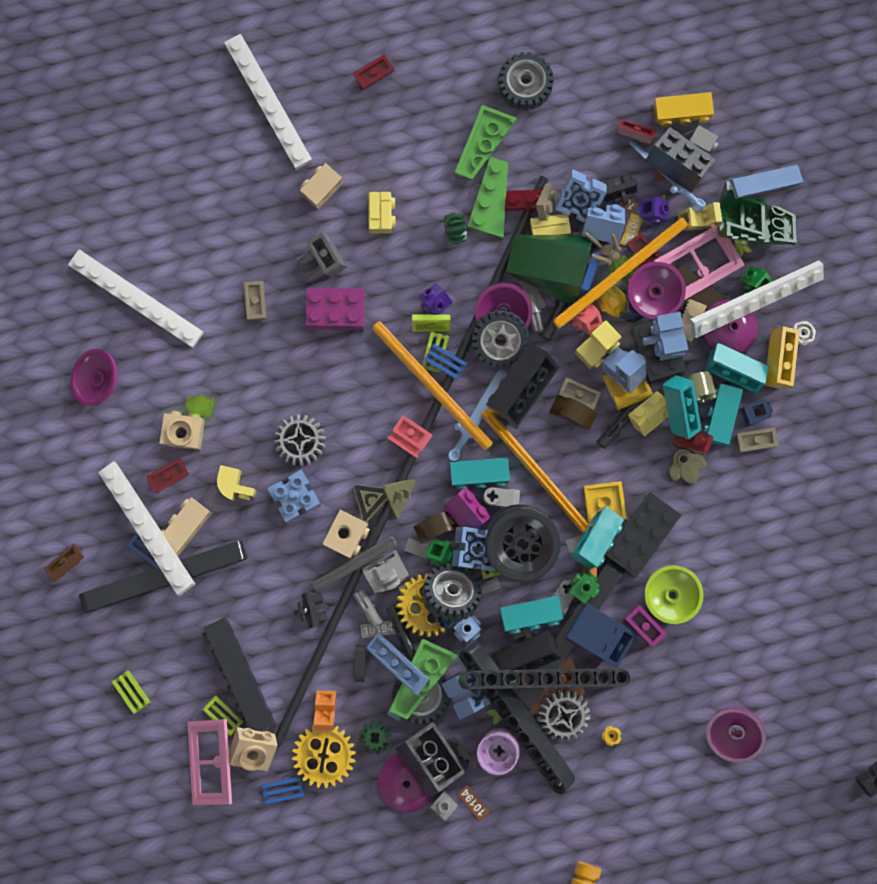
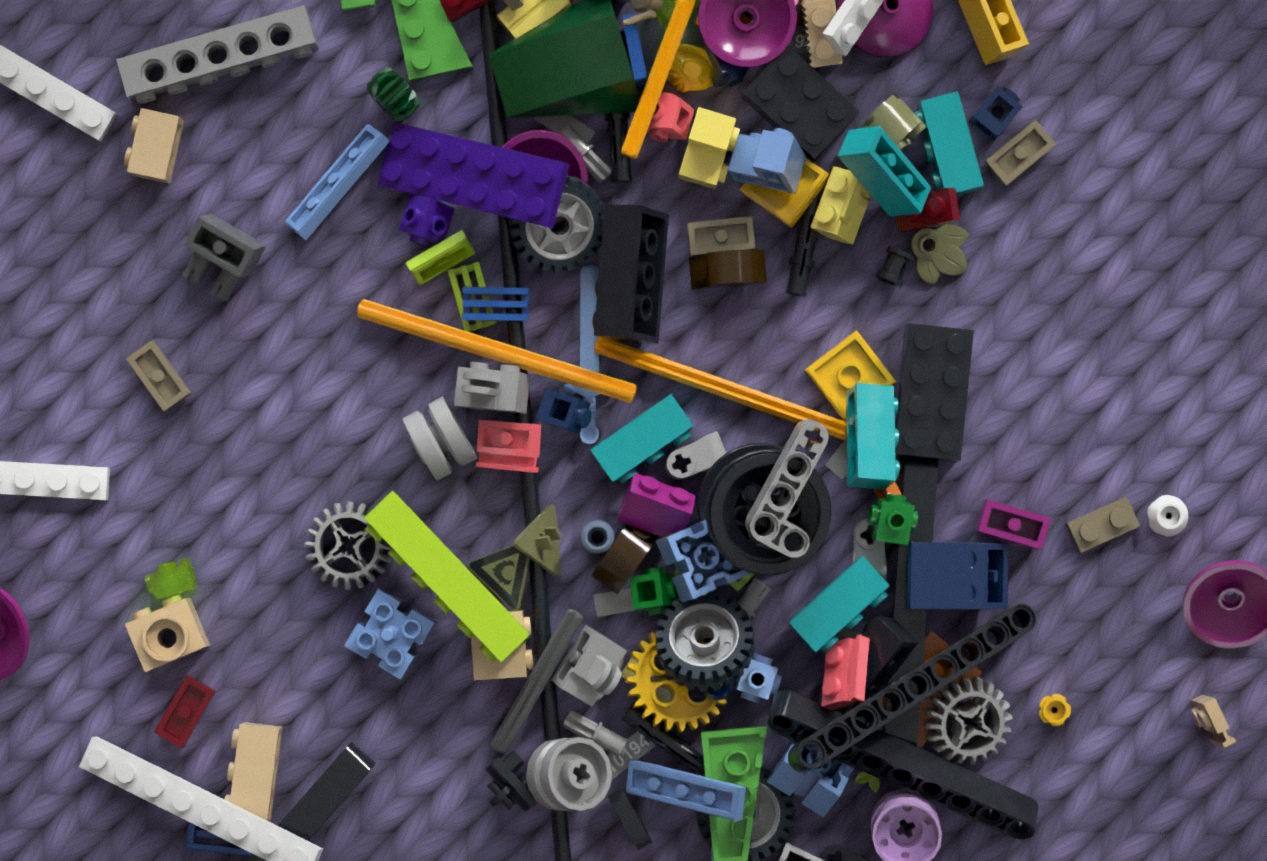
camera: 30 degrees left, 5 degrees up
(228, 485) = (281, 670): light yellow brick -> none
(335, 143) = (136, 67): none -> light grey brick
(335, 309) = (285, 319): magenta brick -> none
(340, 483) = (447, 576): none -> lime brick
(342, 620) = (569, 774): none -> light grey wheel
(377, 412) = (436, 440): none -> light grey wheel
(380, 212) = (267, 134): light yellow brick -> none
(401, 255) = (337, 181): none -> medium blue tile
(418, 403) = (492, 389): none -> light grey brick
(428, 502) = (586, 536): none -> sand blue brick
(448, 435) = (564, 411): none -> dark blue brick
(472, 290) = (473, 174): none -> dark purple plate
(514, 650) = (845, 673): none -> coral plate
(543, 536) = (793, 483): none -> light grey beam
(659, 460) = (894, 267): none -> black bush
(669, 336) = (805, 78): medium blue brick -> none
(687, 594) = (1051, 448): lime dish -> none
(690, 785) = (1209, 715): none -> tan plate
(691, 654) = (1102, 524): none -> dark tan plate
(723, 674) = (1157, 515): none -> white plate
(737, 368) = (931, 64): brick -> none

